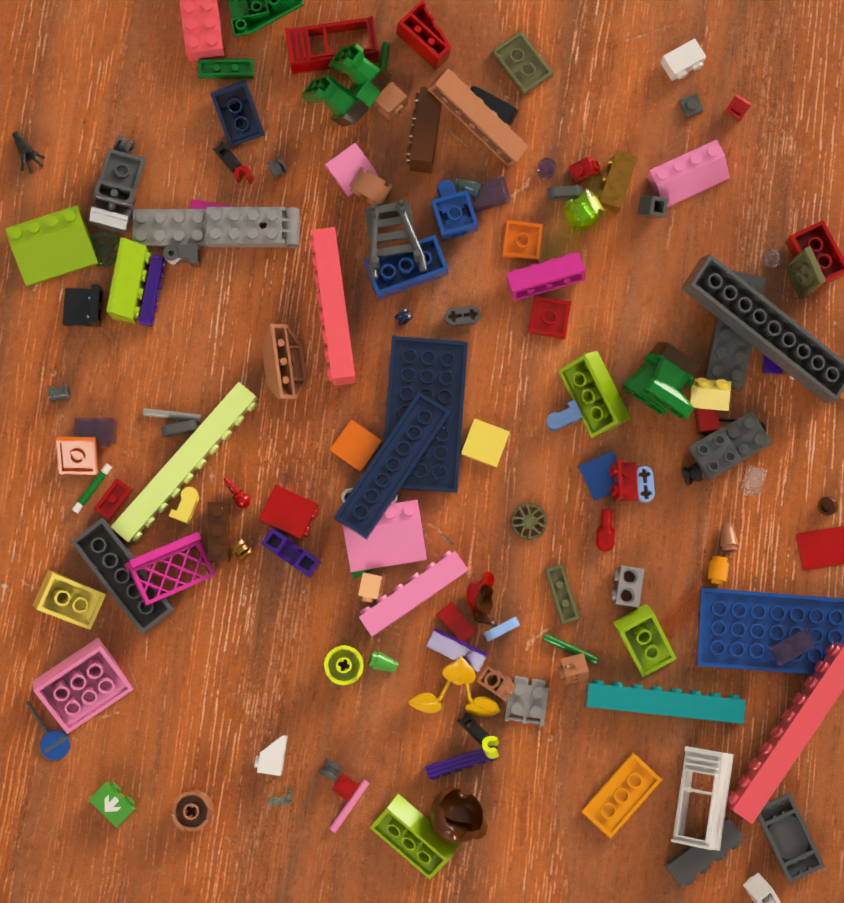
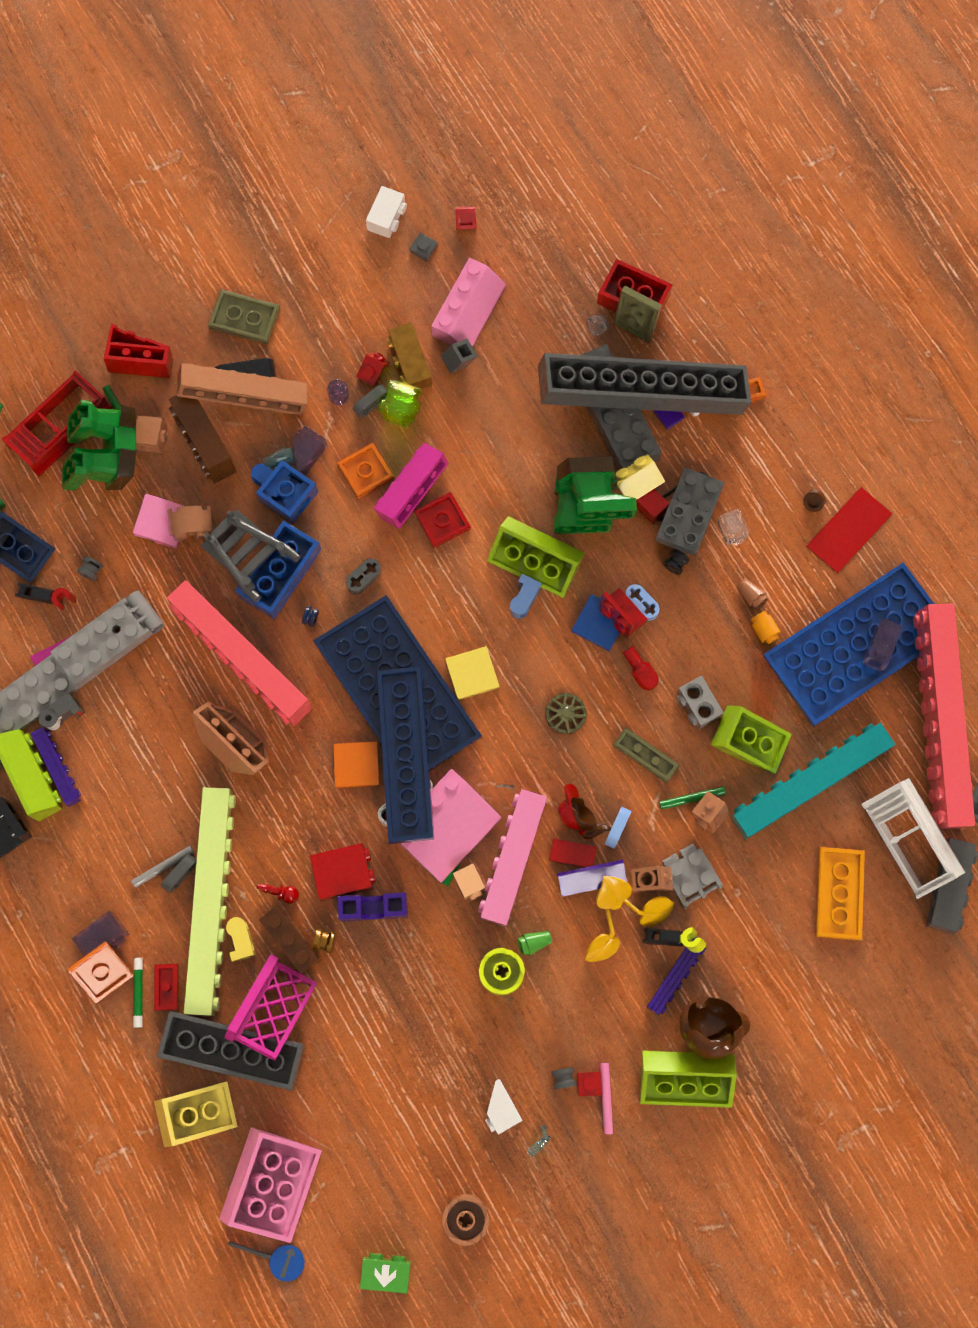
camera: 35 degrees left, 5 degrees down
(59, 393) = (38, 927): dark grey bush -> none

